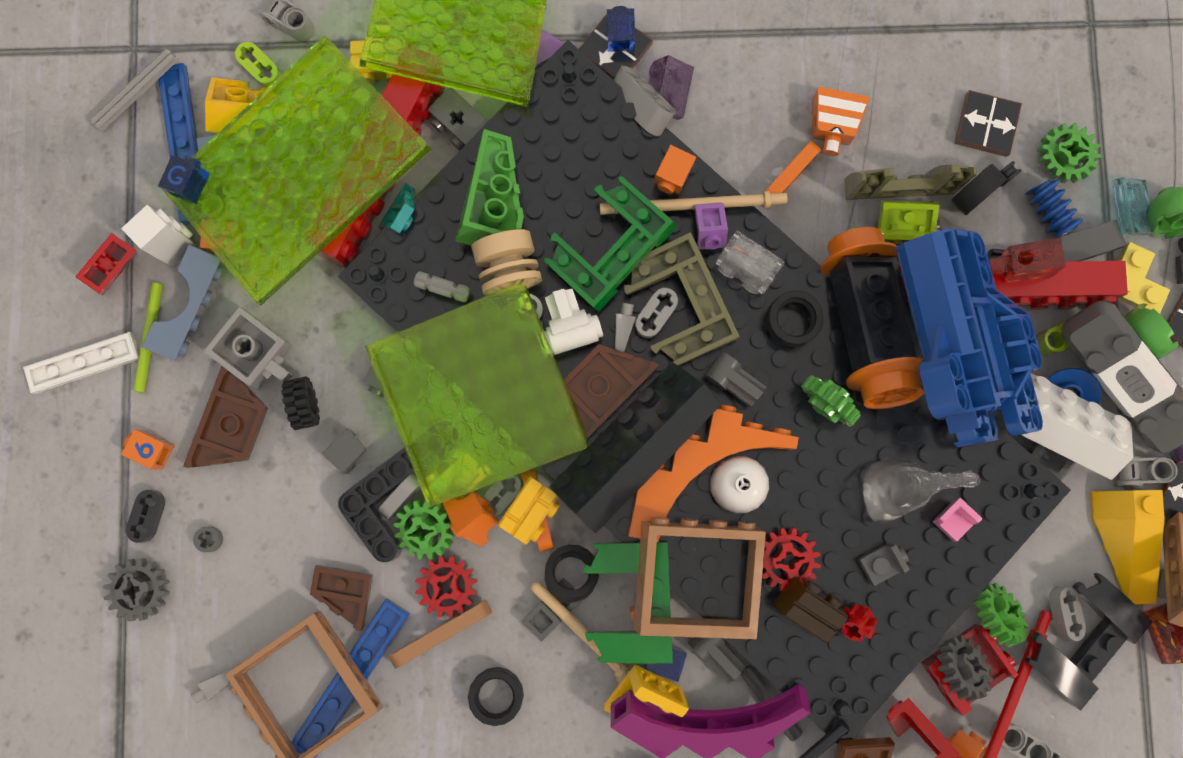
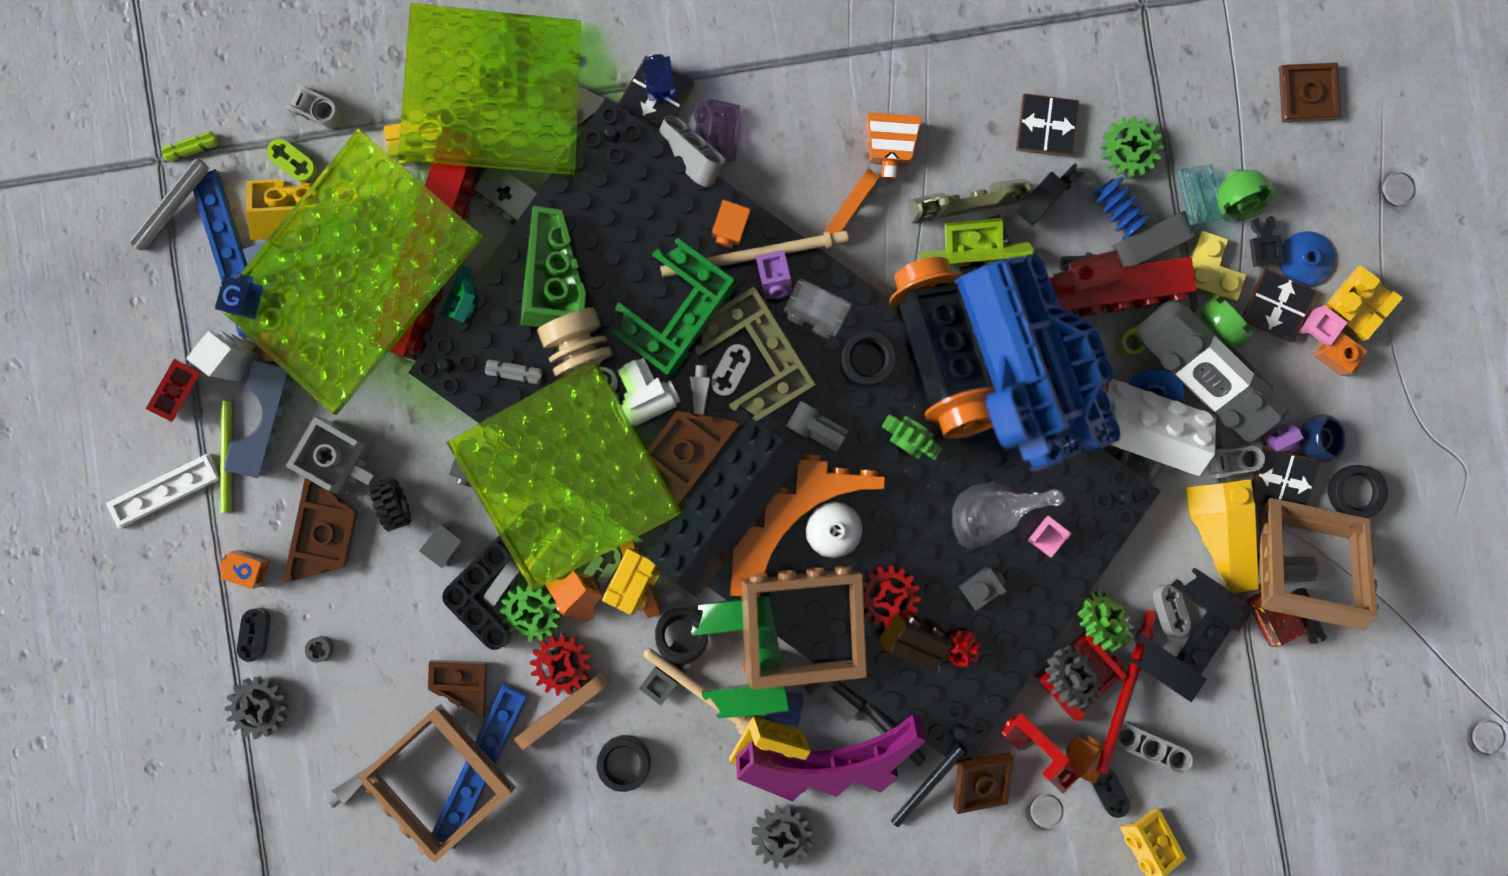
camera: 10 degrees left, 5 degrees up
(163, 39) = (189, 146): none -> lime axle

